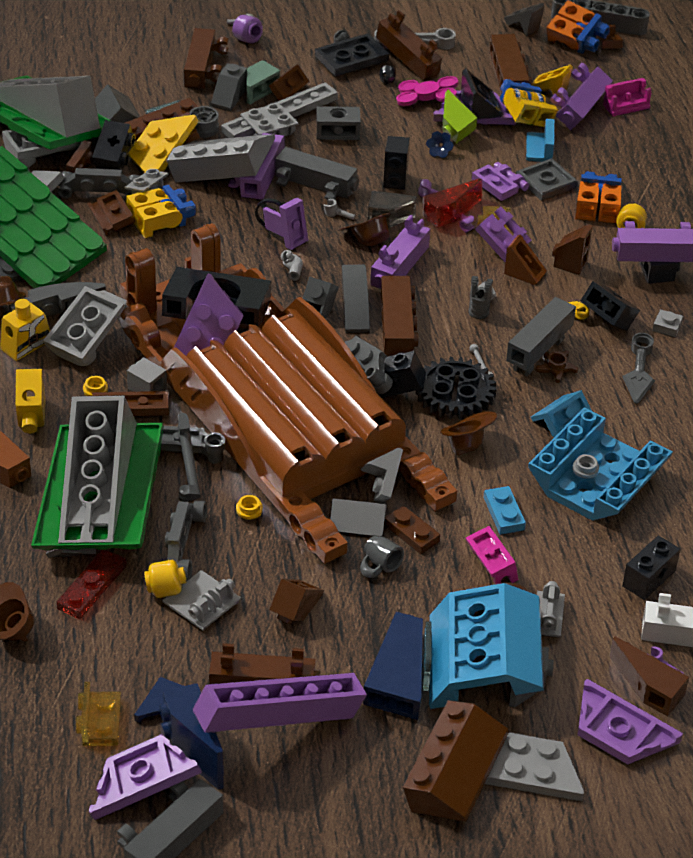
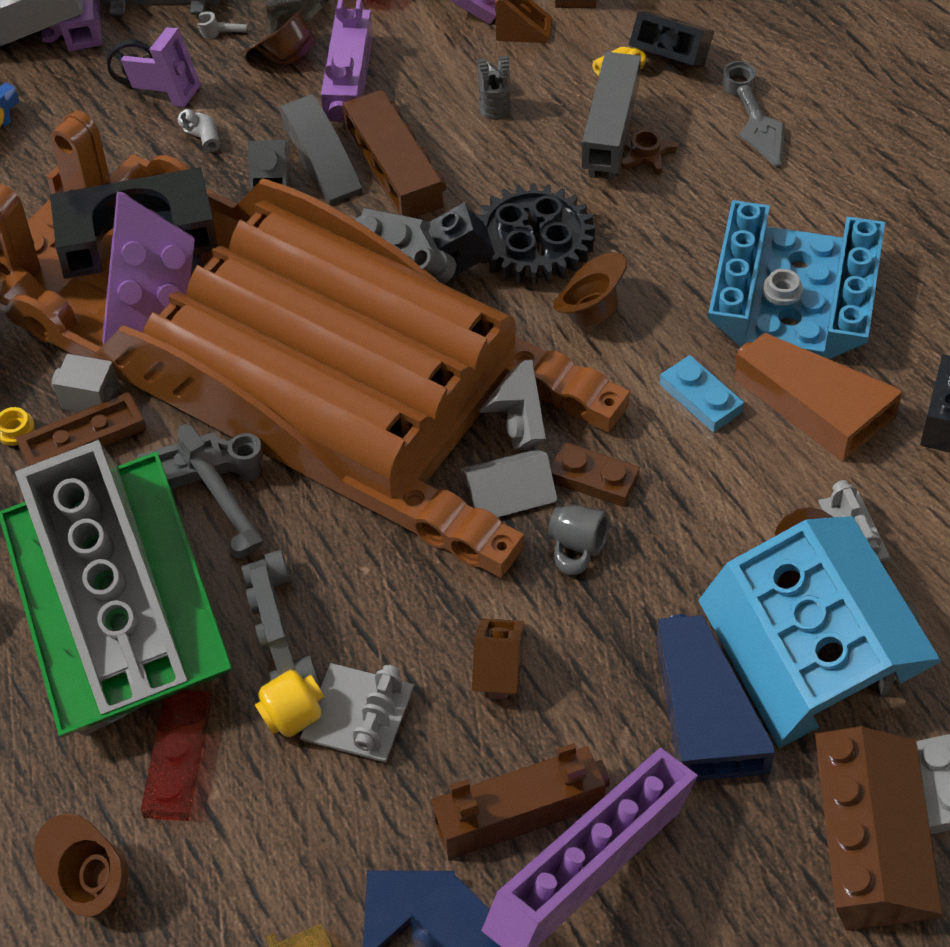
camera: 20 degrees left, 10 degrees up
(249, 507) = (346, 523): yellow plate -> none
(427, 656) = (741, 664): clear light blue piece -> none
(474, 349) = (521, 165): light grey hinge -> none
(493, 555) = (734, 471): dark pink hinge -> none
(562, 411) = (696, 215): dark azure panel -> none
(573, 534) = (816, 394): none -> dark orange slope
(667, 323) = (752, 36): light grey plate -> none

